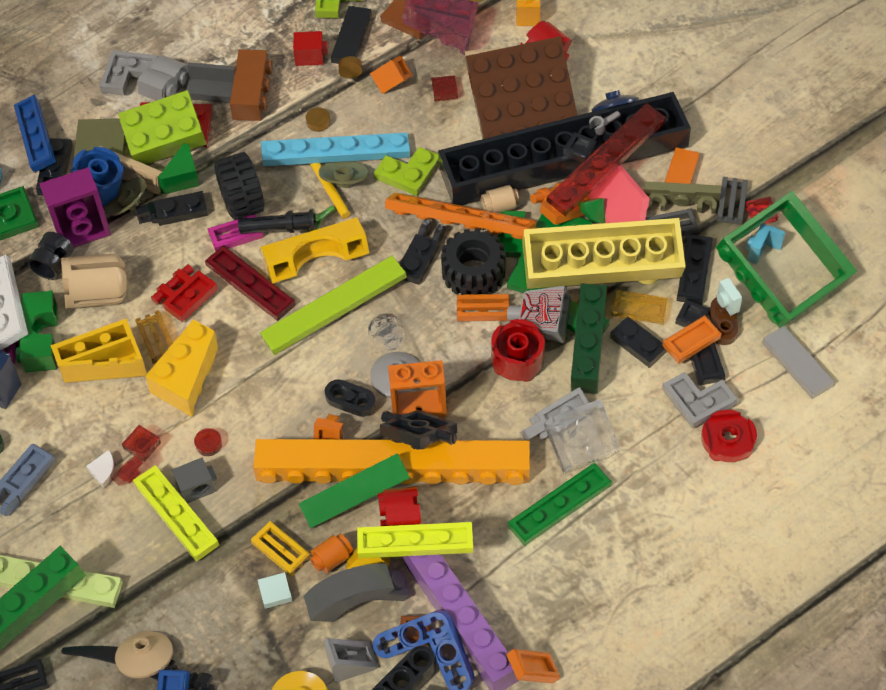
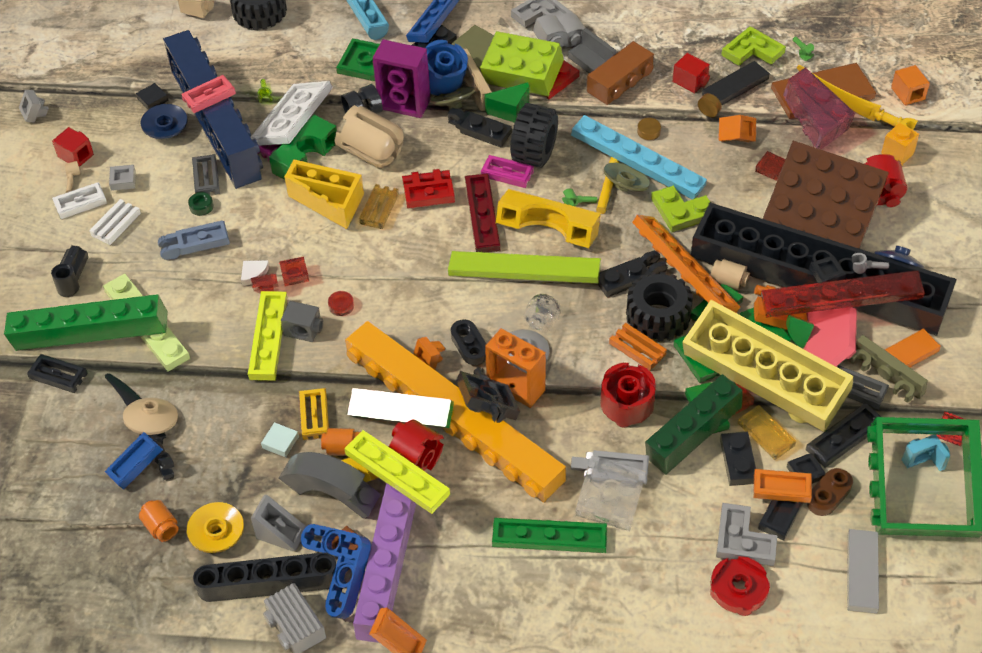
camera: 40 degrees right, 5 degrees down
(183, 367) = (374, 237): yellow wedge -> none
(289, 221) = (547, 184): black pin -> none
(546, 309) = (678, 380): light grey torso -> none
(729, 296) = (843, 471): light aqua plate -> none
(733, 185) = (946, 391): dark grey tile -> none

